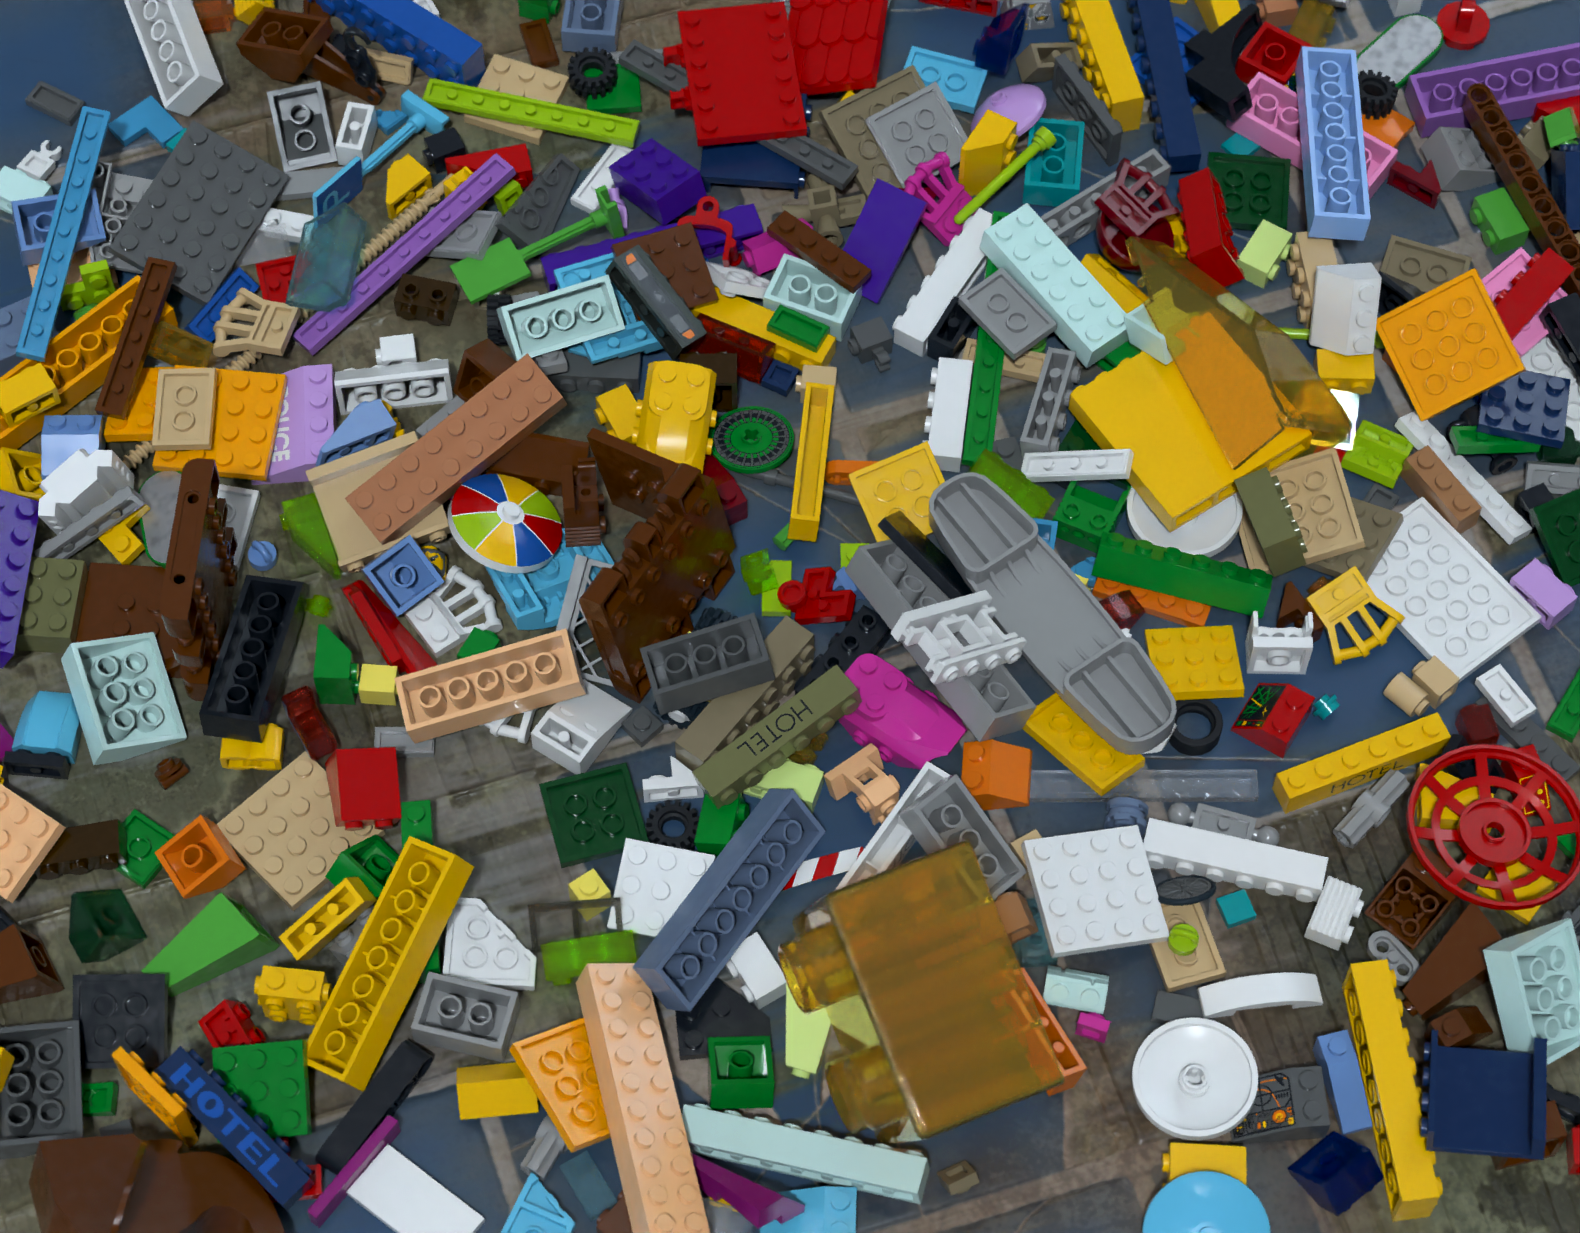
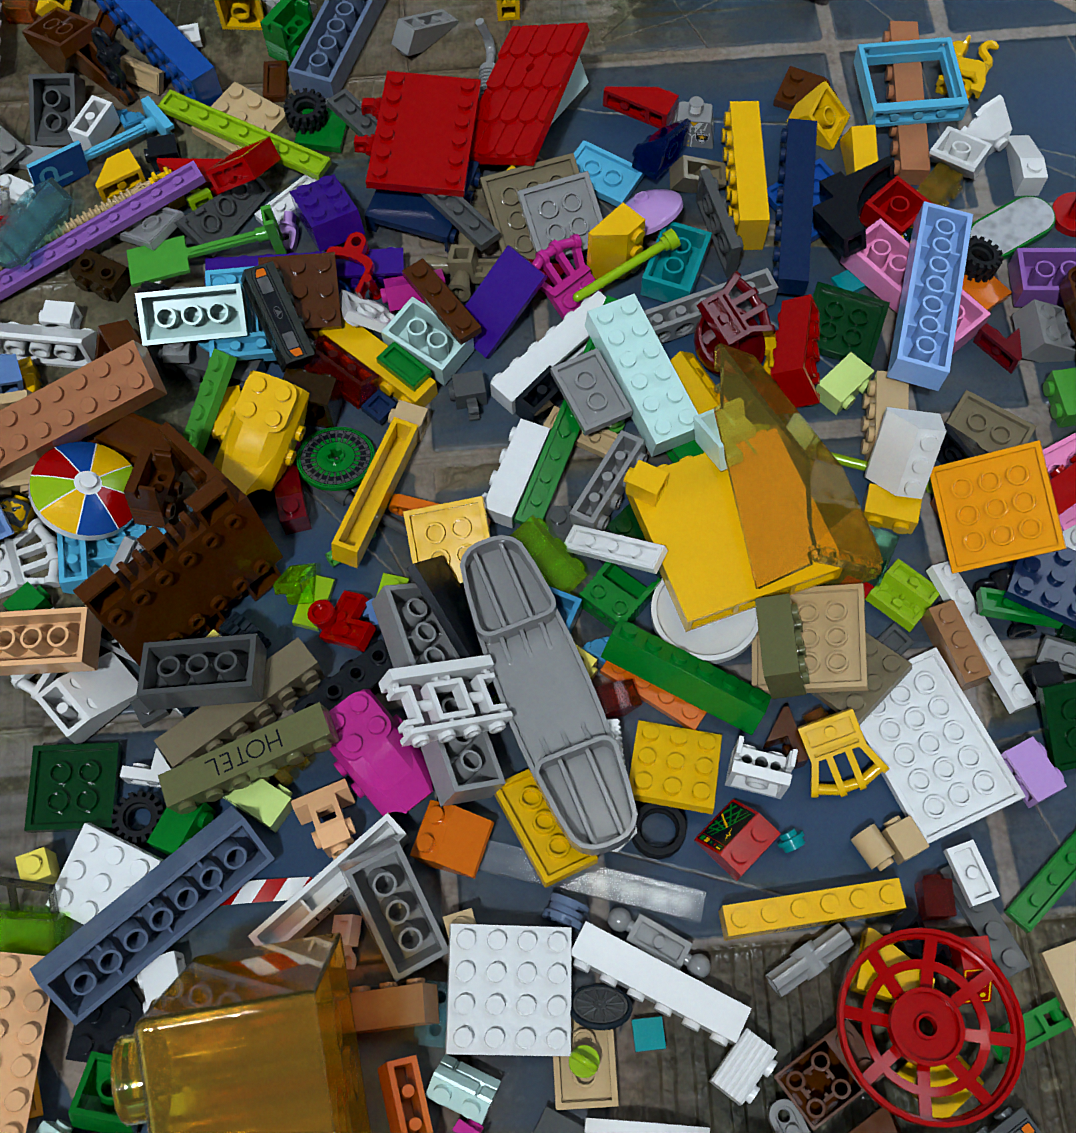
camera: 15 degrees right, 5 degrees up
(556, 142) = (243, 165): none -> red window
(604, 392) = (209, 399): none -> bright green plate
(1093, 391) = (646, 482): none -> yellow brick

